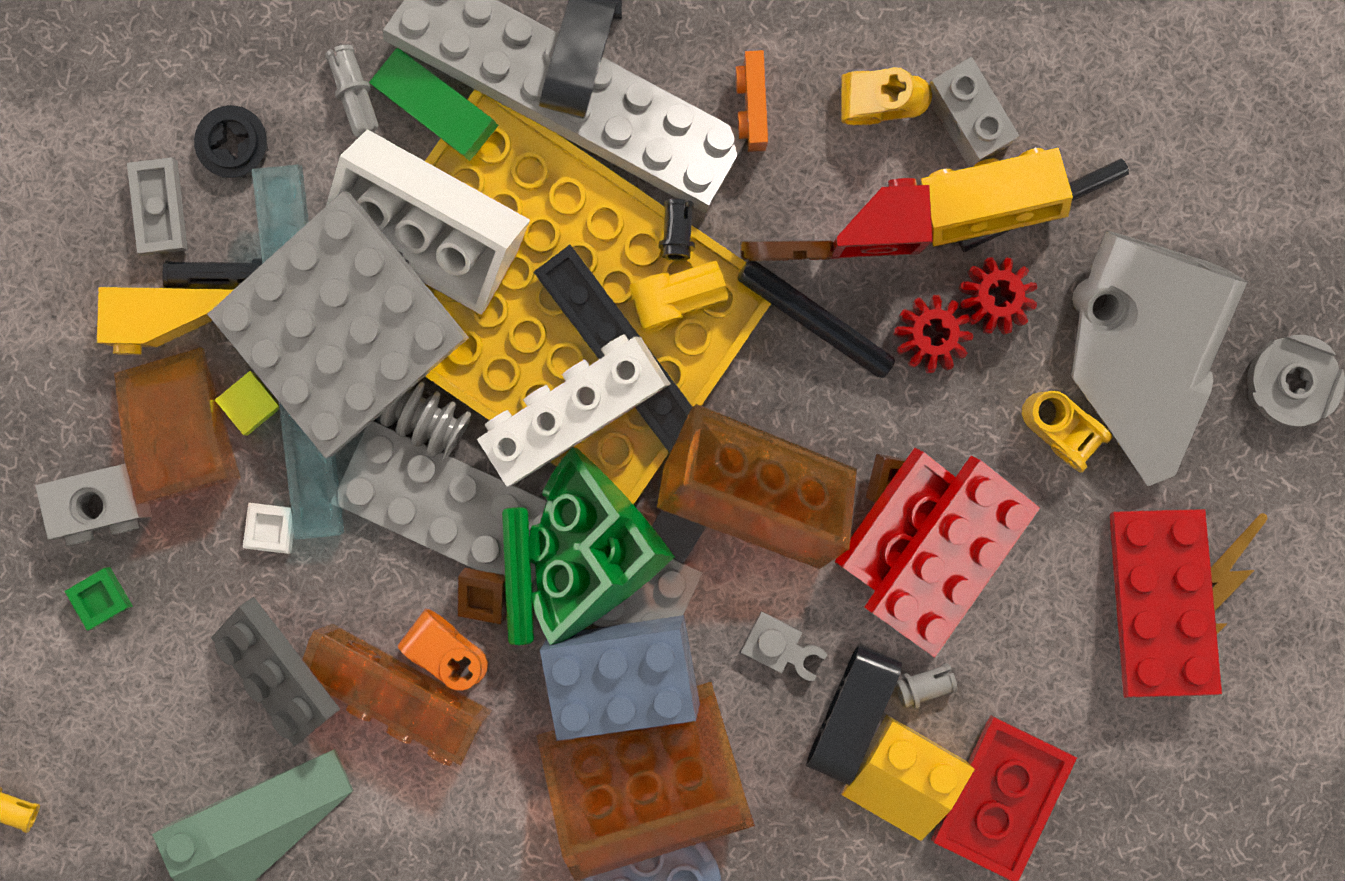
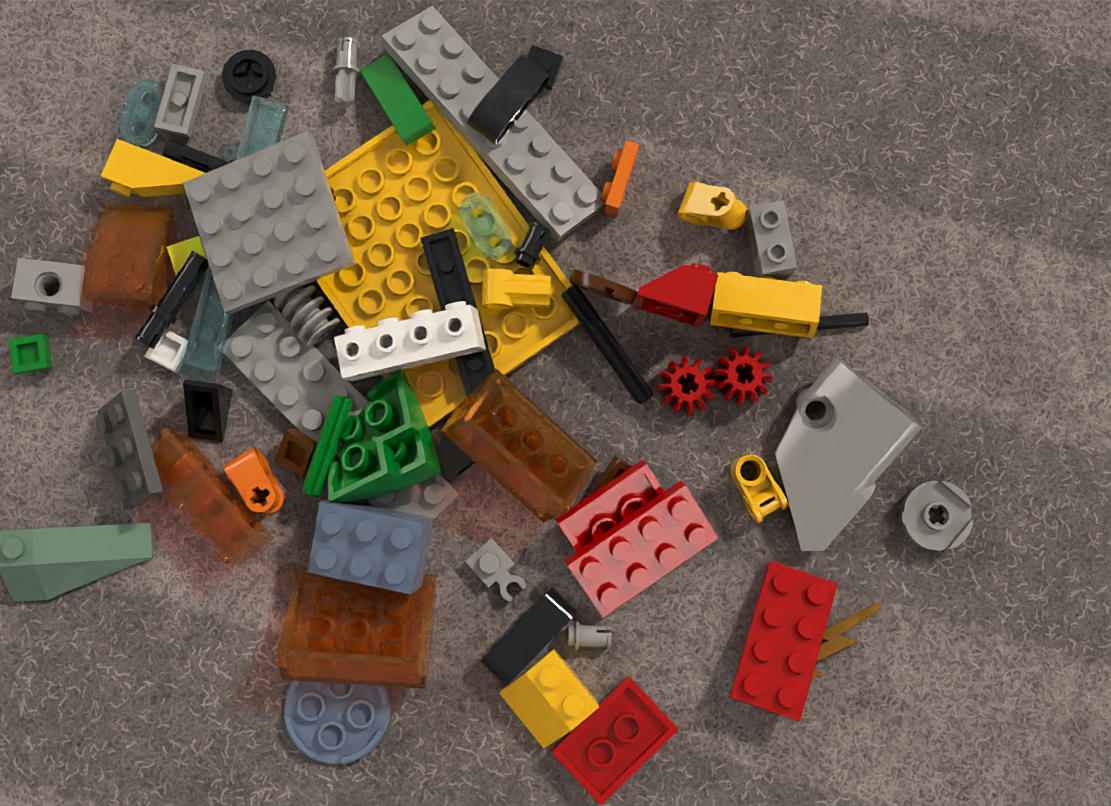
camera: 20 degrees right, 5 degrees down
(110, 241) = (140, 114): none -> clear light blue plate
(251, 466) = (169, 305): none -> black pin
(348, 586) = (206, 409): none -> black slope
(441, 225) = (368, 182): white slope -> none
(610, 226) = (485, 227): none -> clear light blue plate

